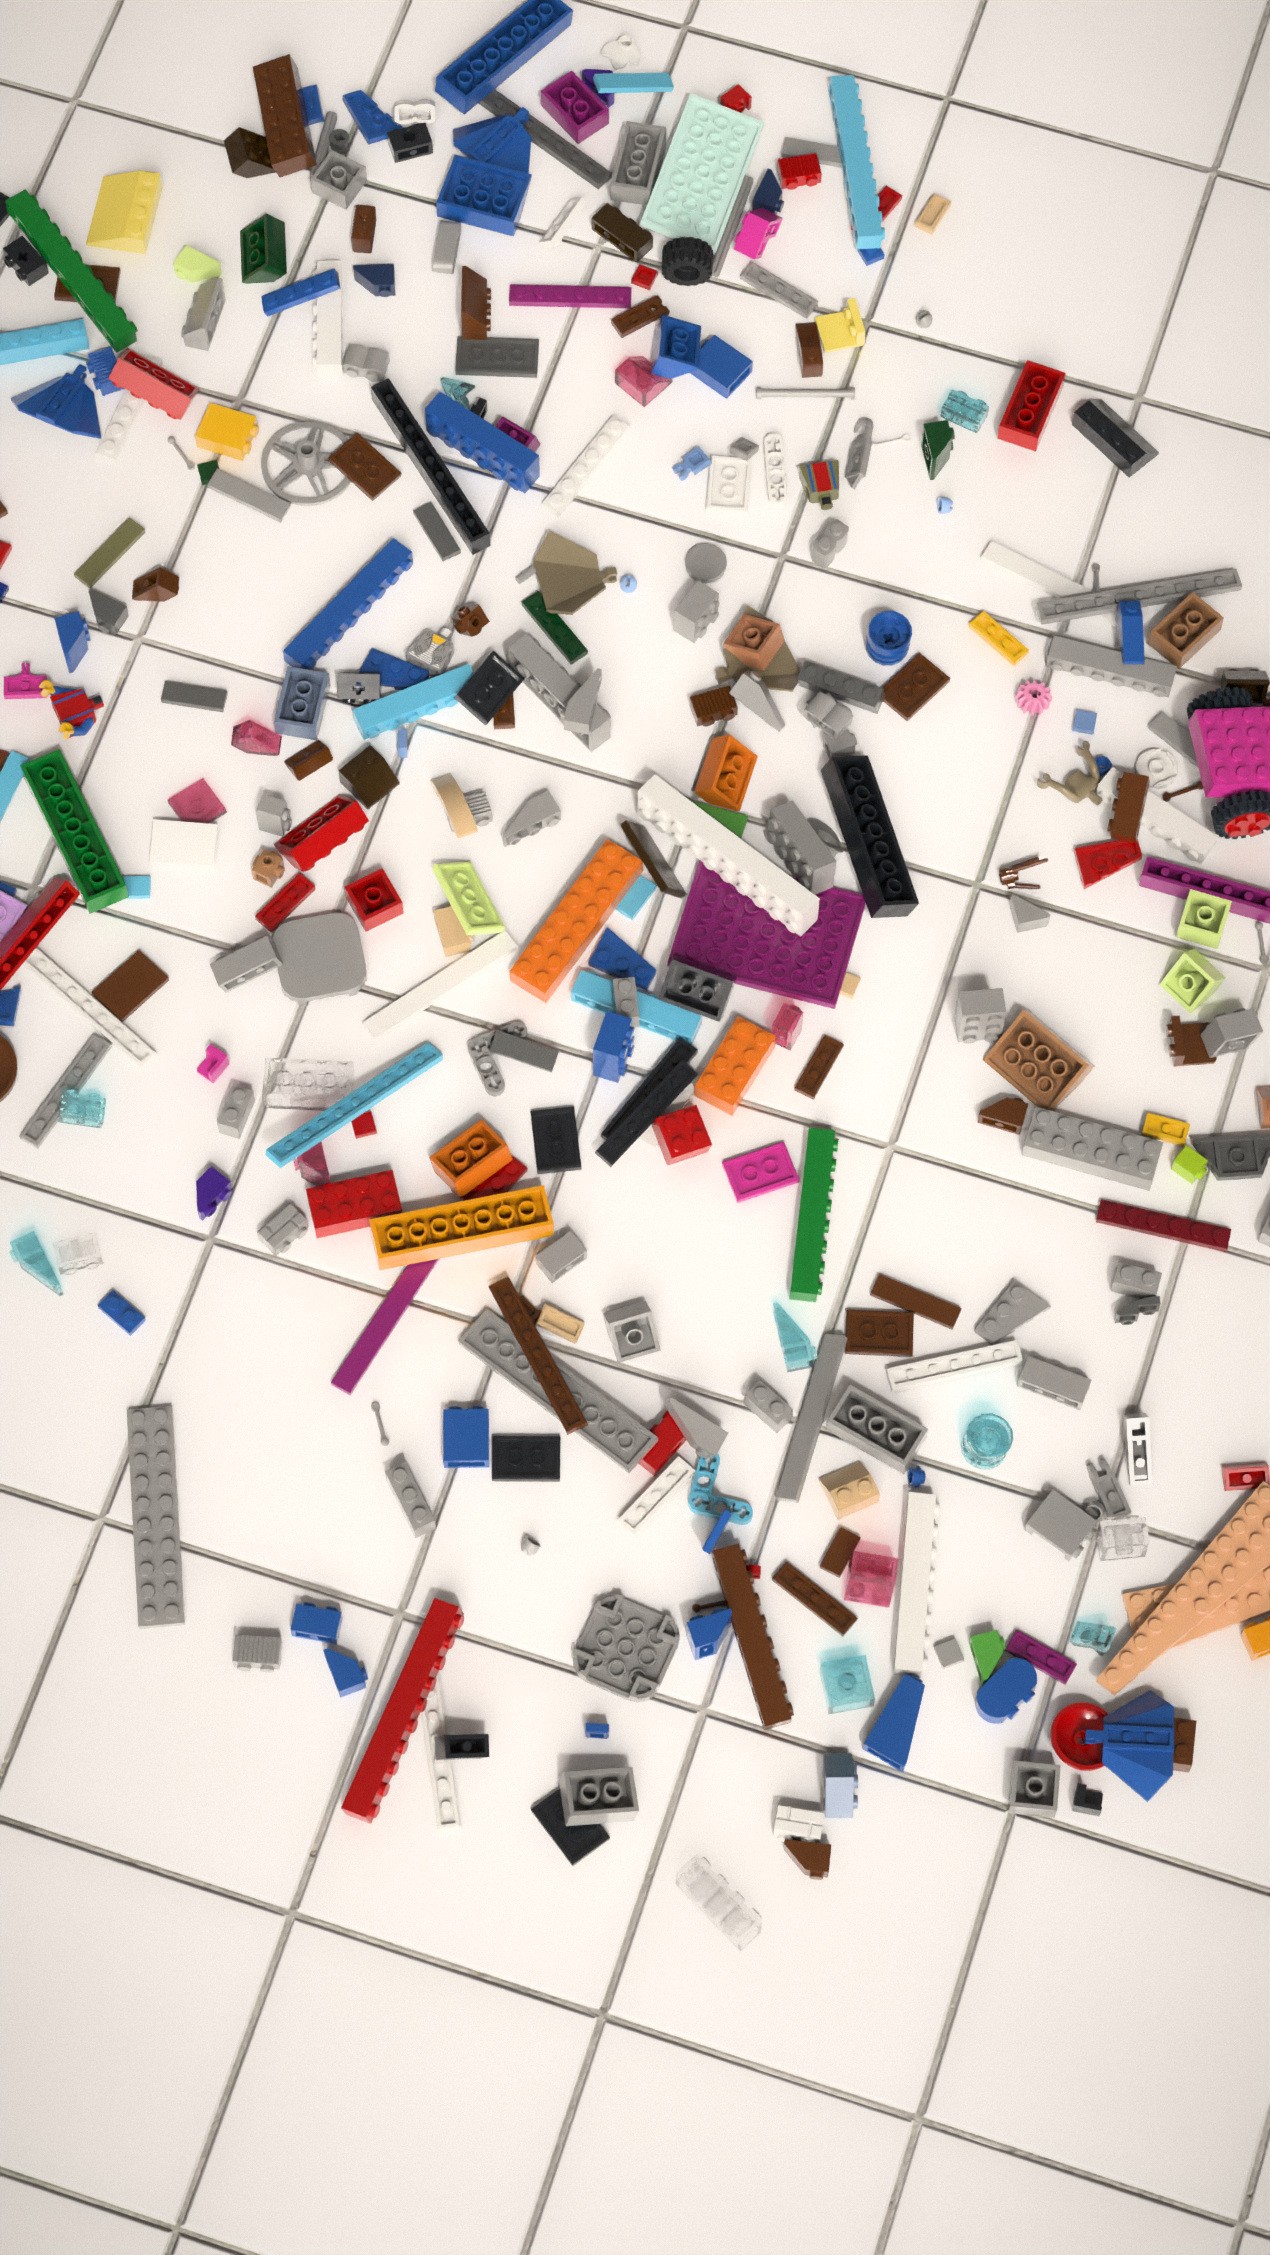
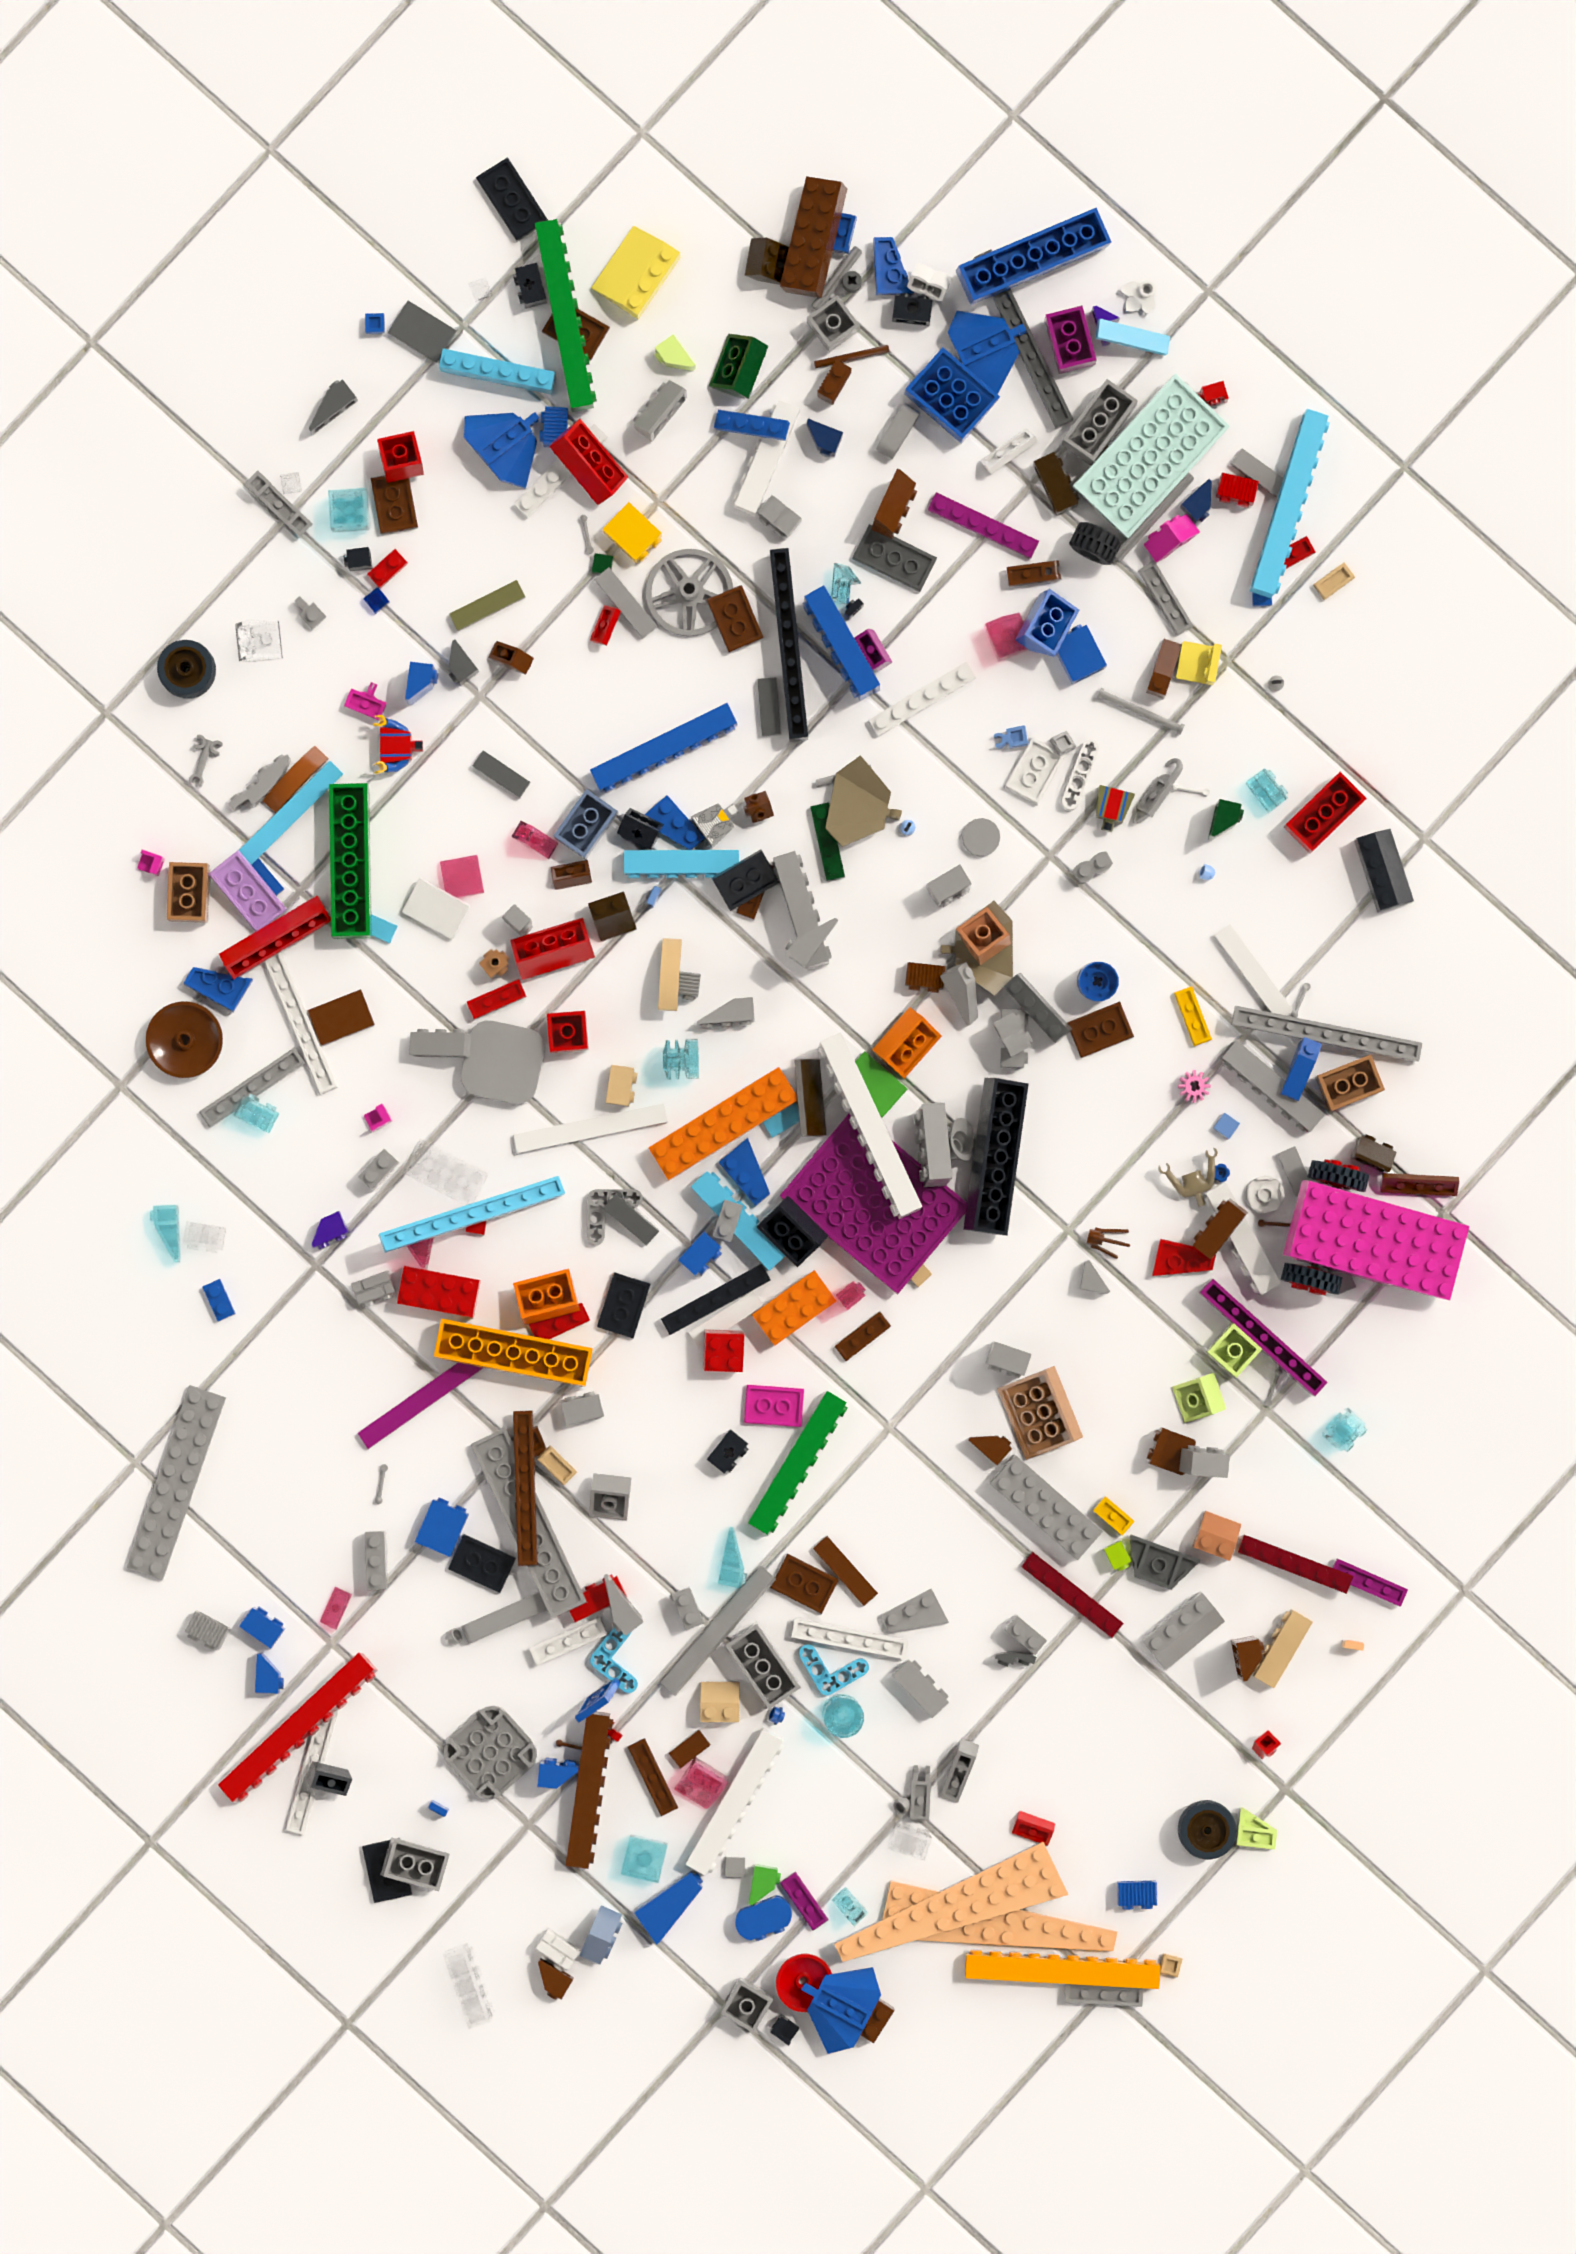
camera: 25 degrees right, 20 degrees up
(237, 522) = (605, 625): none -> red plate
(373, 202) = (852, 356): none -> reddish brown bar
(388, 1571) = (336, 1608): none -> clear pink slope
(468, 898) = (645, 1064): yellowish green tile -> none
(506, 875) = (681, 1059): none -> clear light blue wheel
(577, 1500) = (503, 1618): none -> light grey beam
(644, 277) = (1056, 534): red tile -> none
(646, 1113) = (703, 1320): black plate -> none
(738, 1222) = (717, 1456): none -> black brick
(949, 1415) = (826, 1676): none -> medium azure beam
(1062, 1525) = (869, 1807): light grey panel -> none

